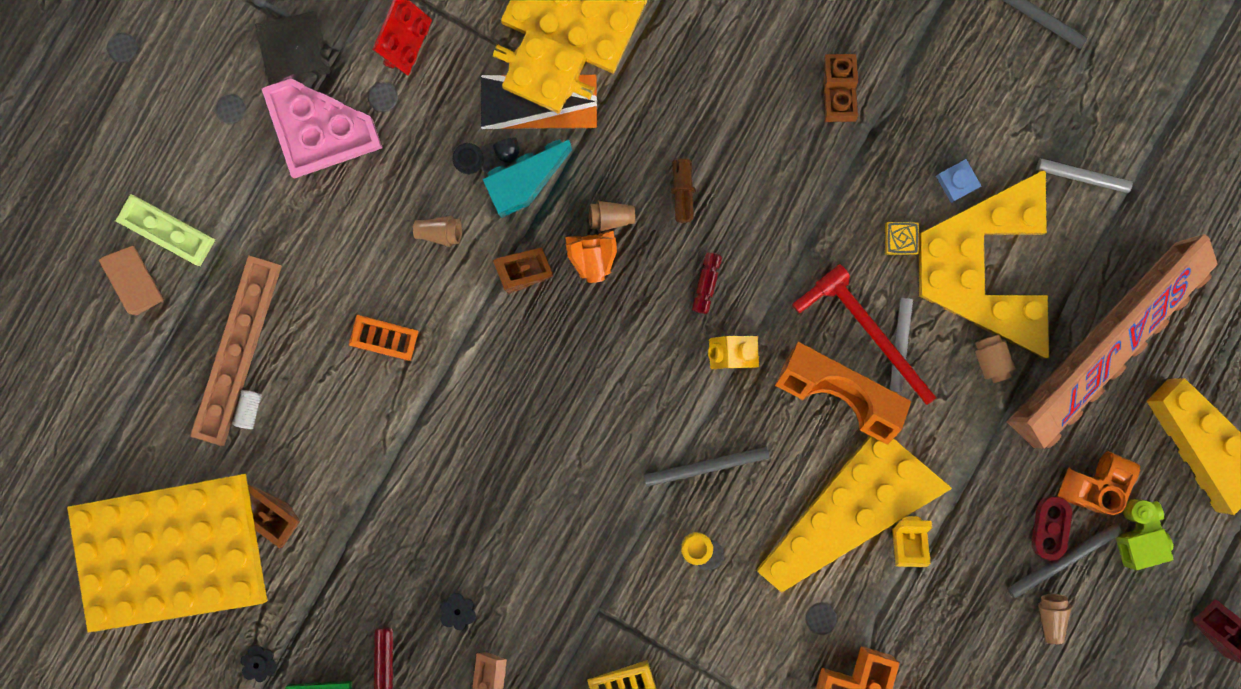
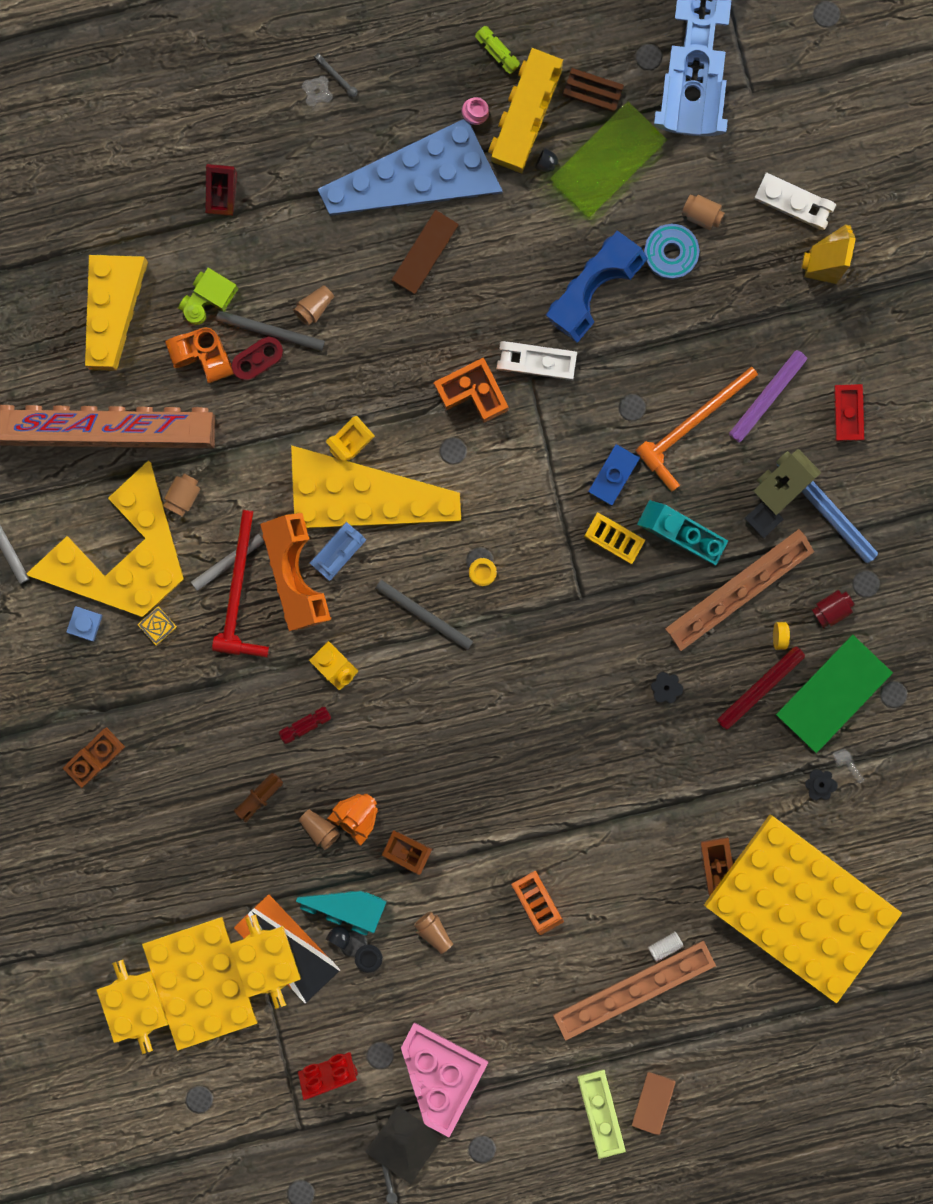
camera: 130 degrees left, 0 degrees up
(826, 444) = (338, 551): none -> medium blue hinge

